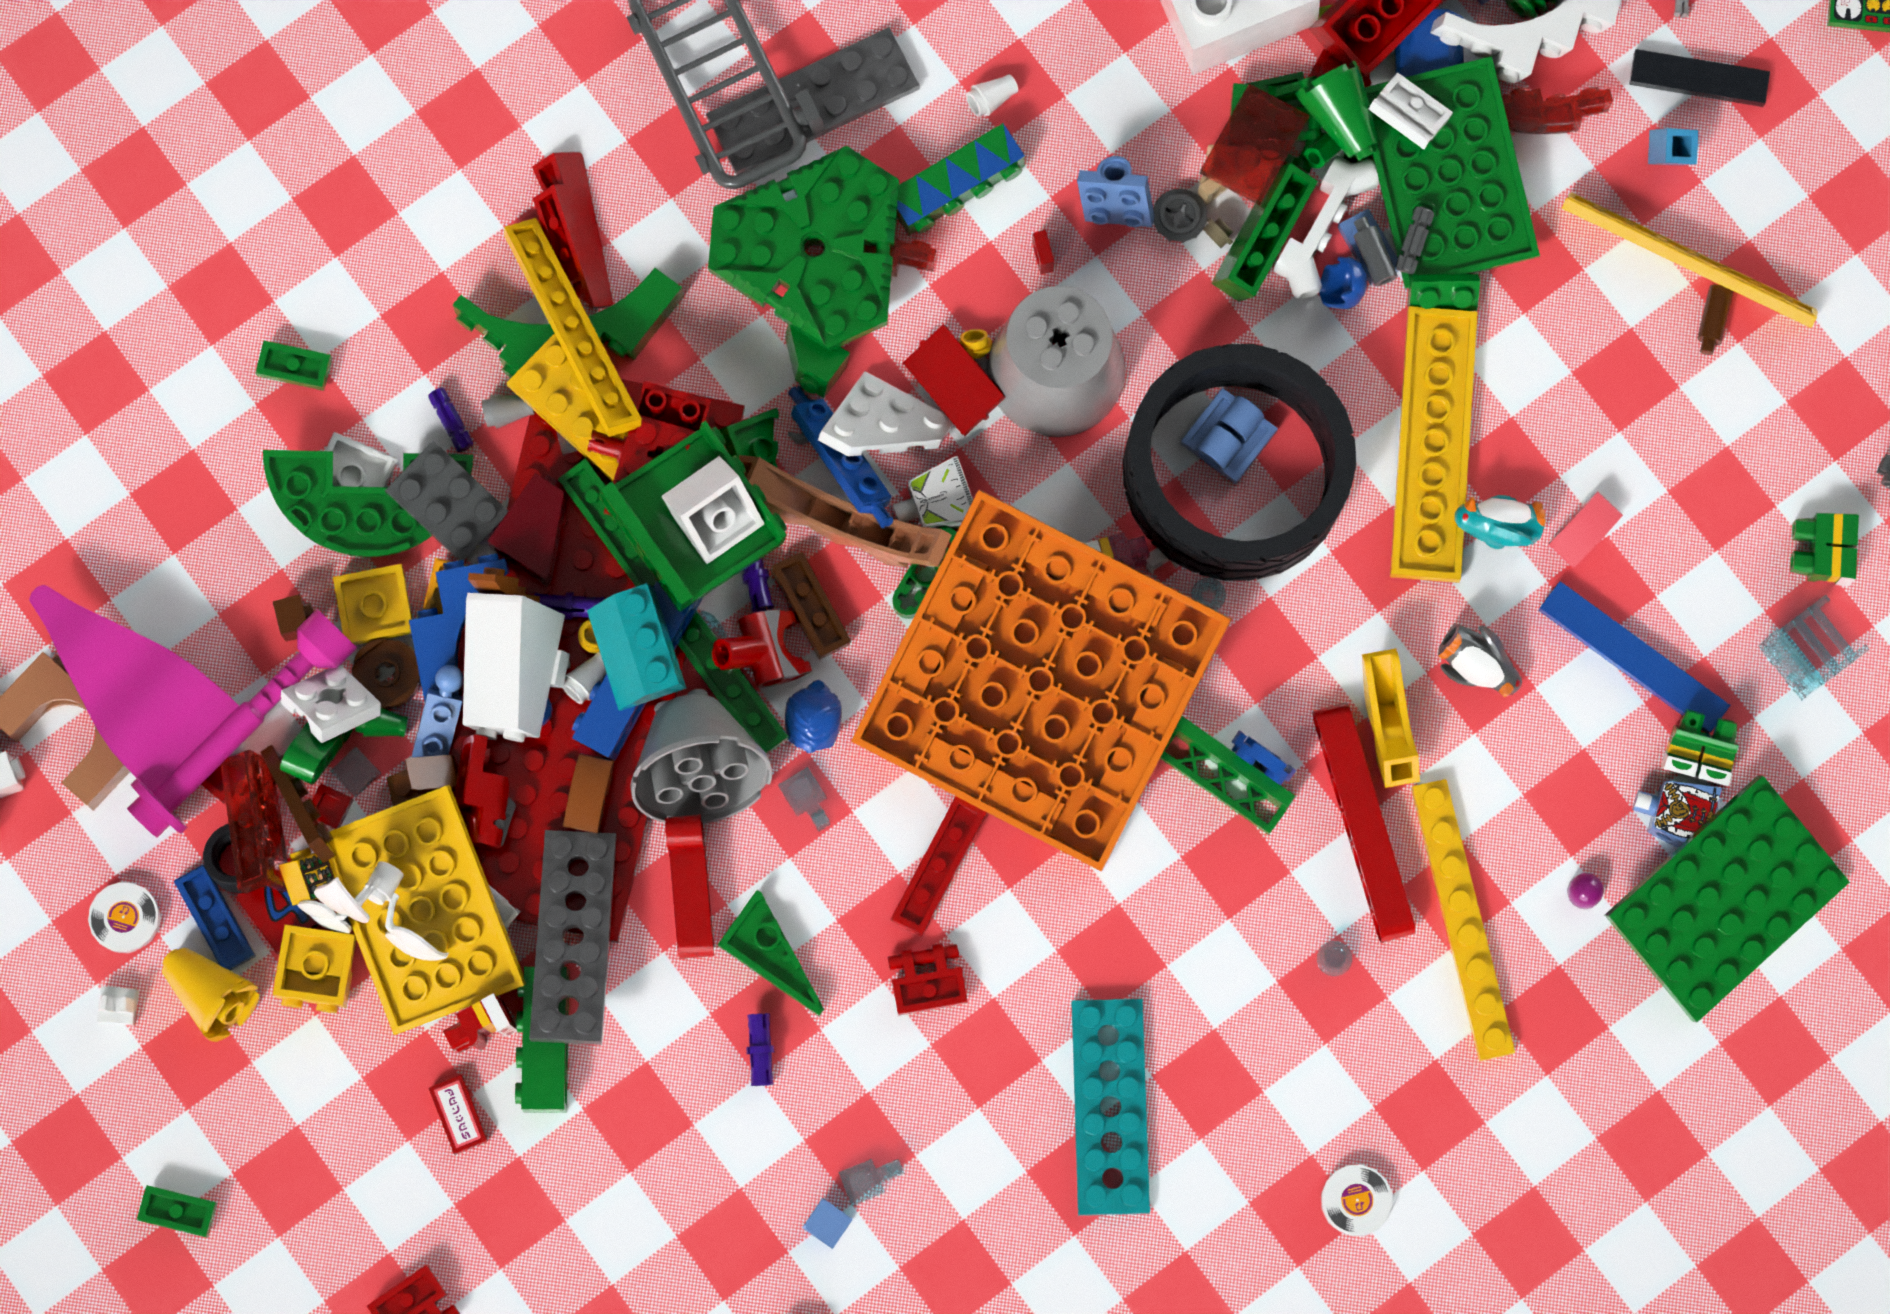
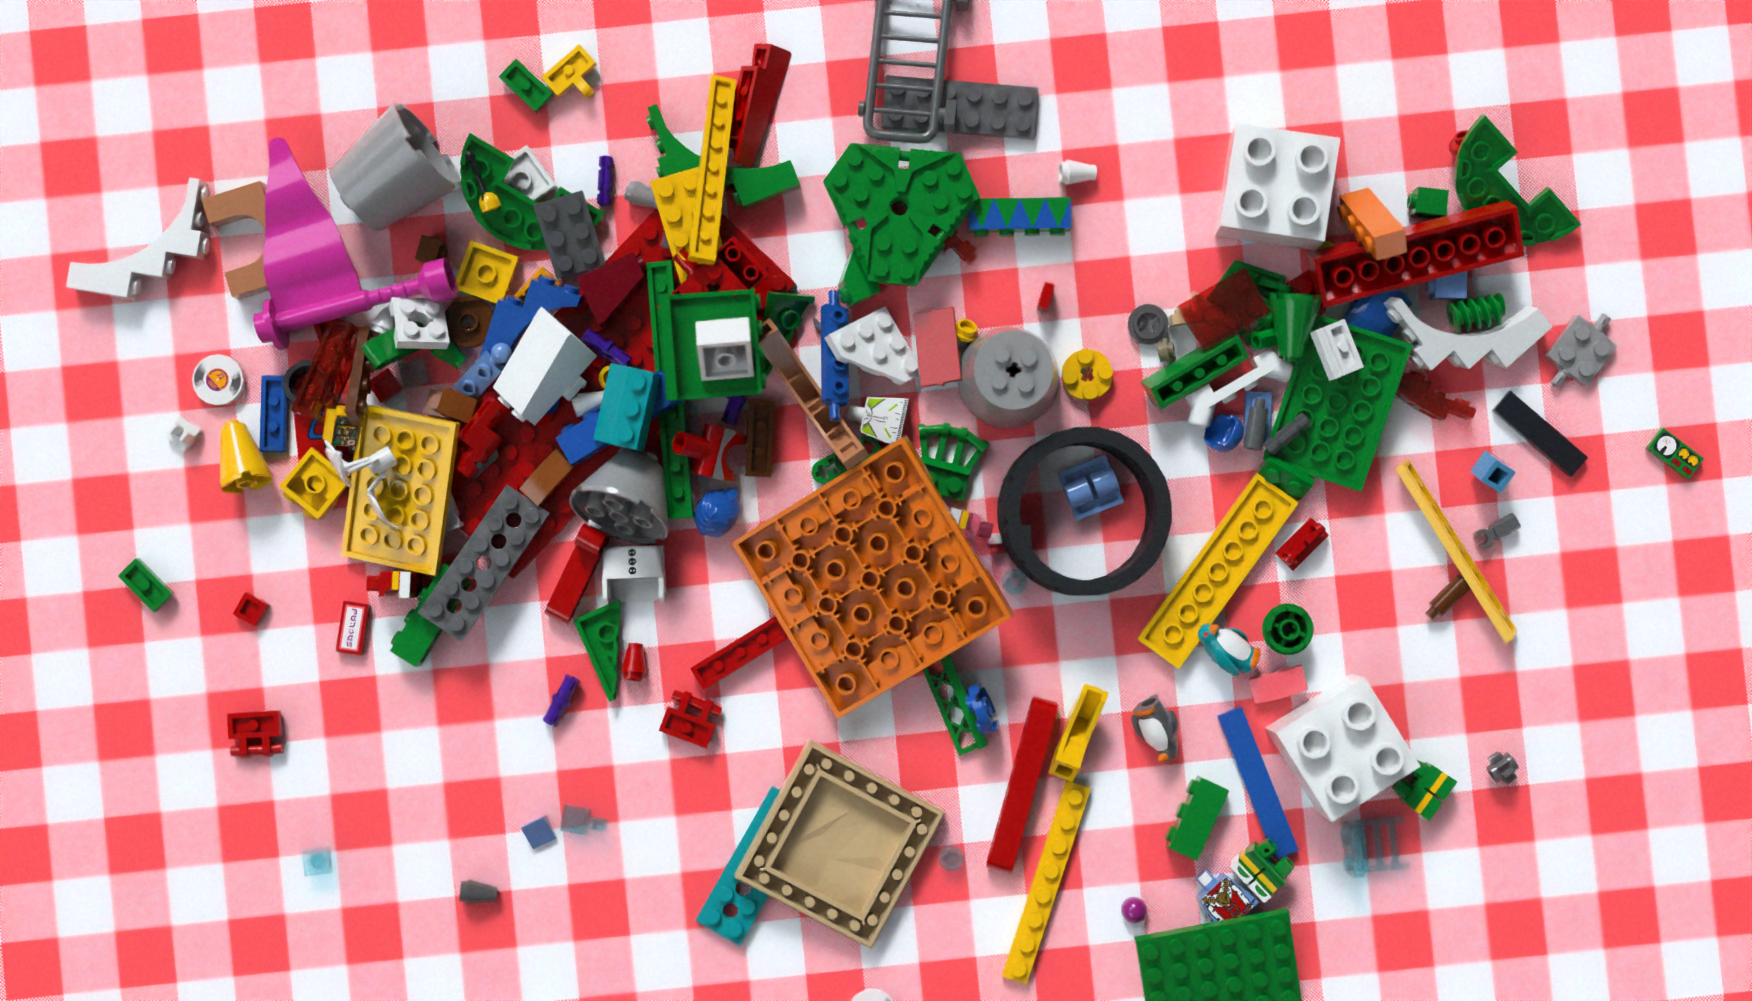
camera: 30 degrees right, 10 degrees up
(197, 545) = (393, 170): none -> light grey cone
(285, 728) = (383, 321): none -> white cone
(321, 1166) = (251, 609): none -> red tile
(329, 515) = (488, 200): none -> hinge
(337, 320) = (570, 72): none -> yellow plate
(494, 582) = (563, 312): dark orange slope -> none
(758, 847) = (634, 574): none -> white piece
(804, 795) = (684, 554): clear light blue plate -> none
(821, 954) = (634, 663): none -> red cone
(1060, 514) = (948, 477): none -> green plate
(1115, 194) = (1113, 289): medium blue plate -> none
(1159, 299) = (1072, 377): none -> yellow plate
(1193, 1016) = (839, 843): none -> tan tile
(1511, 356) = (1302, 543): none -> red hinge
(1555, 458) = (1287, 629): none -> green cone
(1588, 737) = (1196, 817): none -> green brick
(1702, 552) = (1342, 747): none -> white brick
(1722, 209) = (1498, 529): none -> dark grey bar

